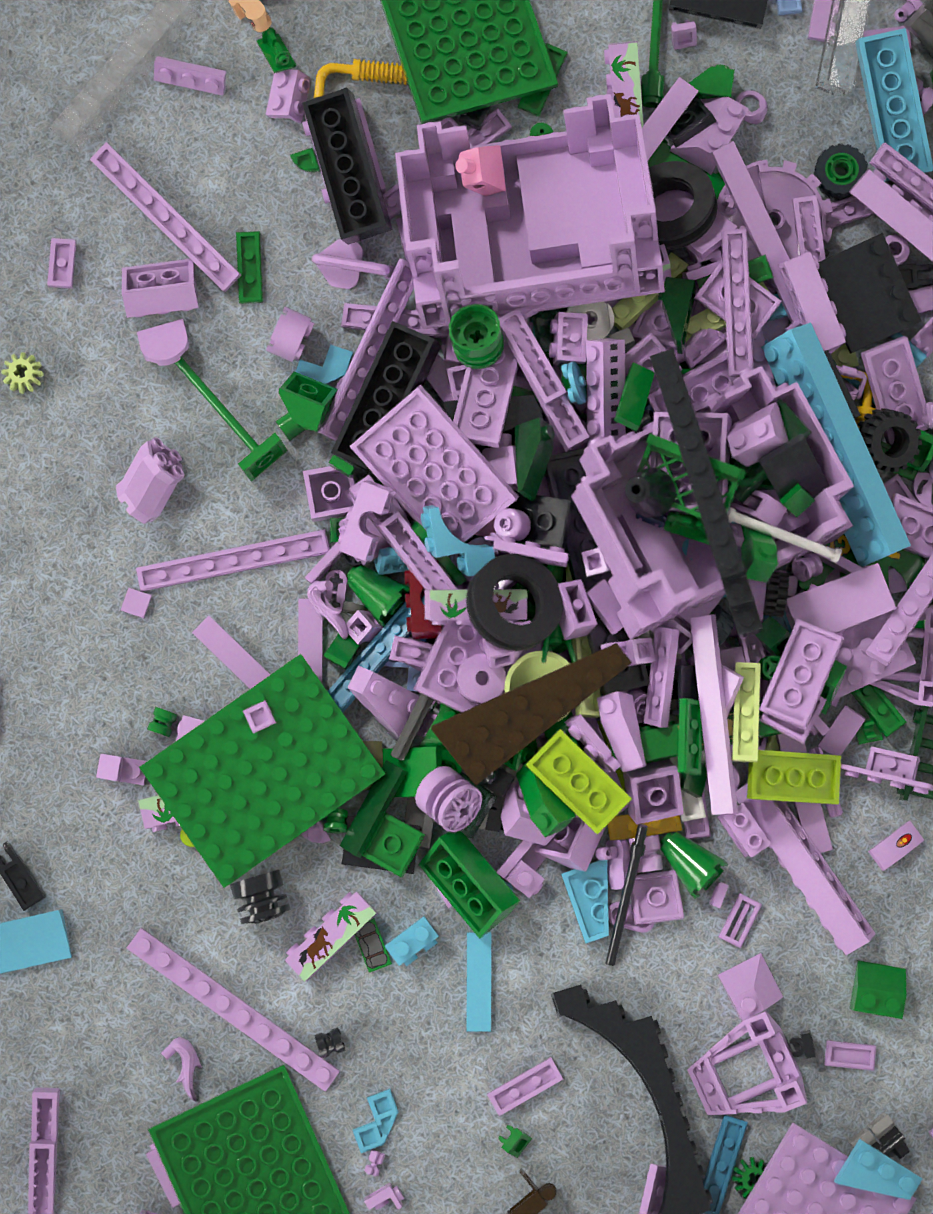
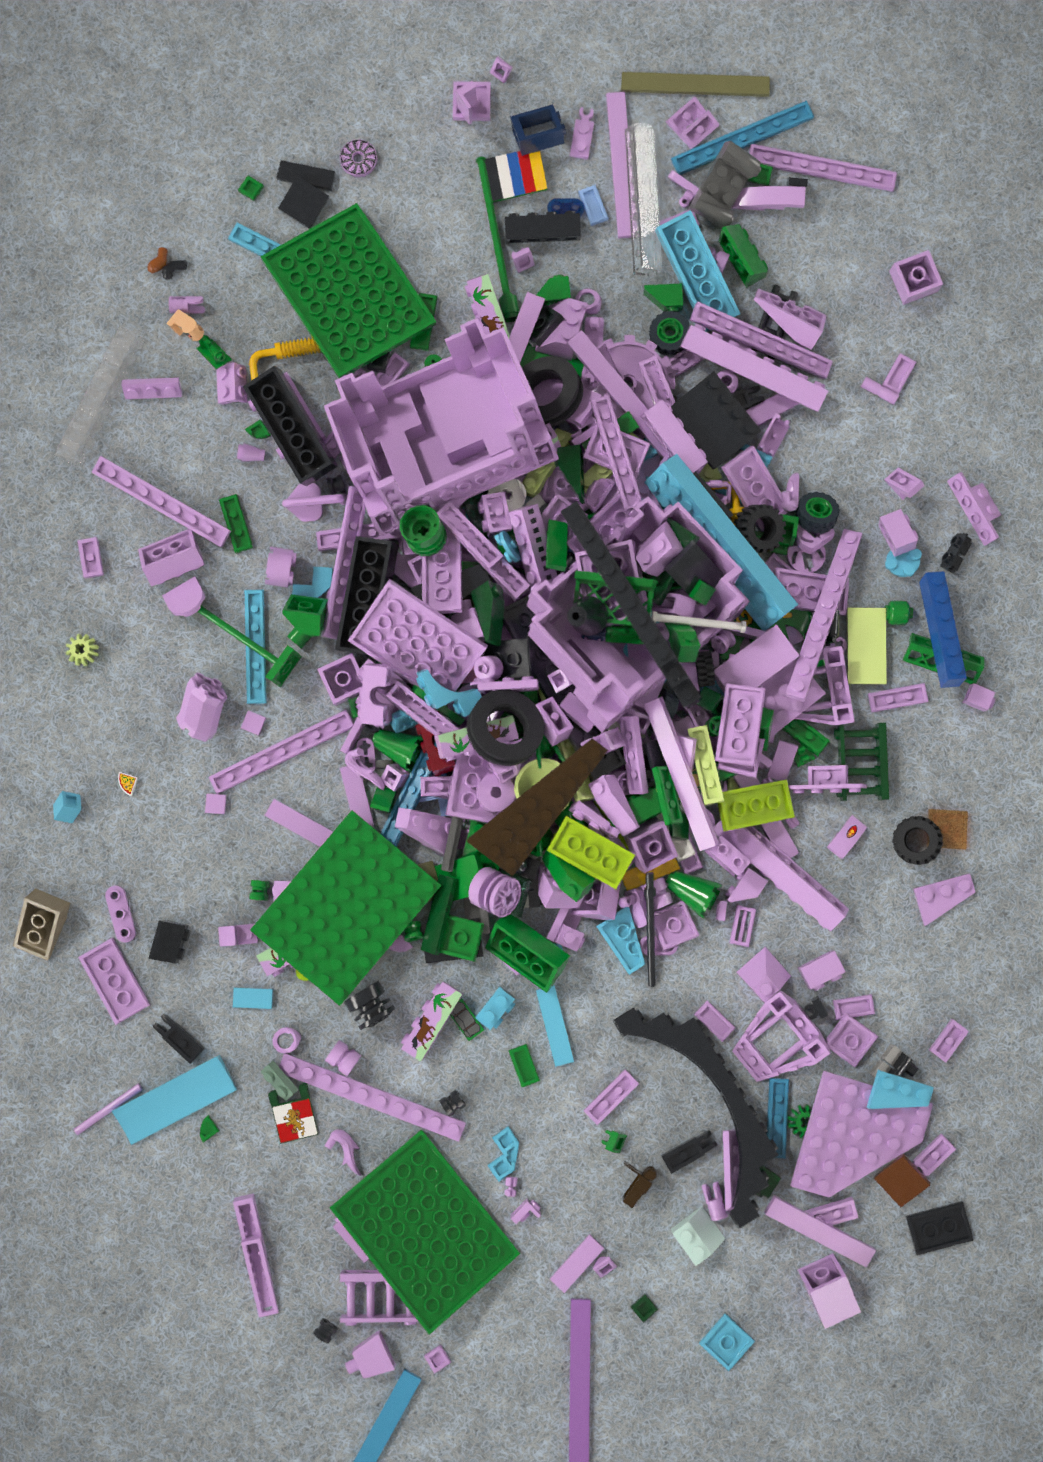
camera: 10 degrees left, 0 degrees up
(24, 995) = (208, 1129): none -> green tile
(35, 549) = (127, 783): none -> tile
(37, 755) = (169, 941): none -> black slope
(120, 851) = (252, 998): none -> medium azure tile
(126, 960) = (279, 1081): none -> sand green plate
(132, 1010) = (294, 1117): none -> flag
(161, 912) = (296, 1036): none -> lavender piece
(207, 516) = (253, 722): none -> lavender tile
(211, 952) = (343, 1058): none -> lavender wheel
(228, 442) = (255, 631): none -> medium azure tile
(259, 716) = (332, 867): lavender tile -> none
(289, 186) = (250, 453): none -> lavender cone
(341, 466) = (346, 657): green tile -> none
(383, 252) = (336, 485): none -> black wheel
(428, 1020) = (524, 1065): none -> green tile
(482, 170) = (394, 402): bright pink torso -> none
(600, 1178) = (687, 1152): none -> black hinge
(675, 1027) = (714, 1021): none -> lavender tile
(749, 144) = (594, 329): none -> lavender piece
(759, 874) = (748, 886): none -> lavender slope
(822, 1000) = (821, 970): none -> lavender brick
(836, 1094) = (850, 1039): none -> lavender tile
(847, 125) = (665, 296): none -> green slope
(879, 989) = (863, 951): green slope -> none

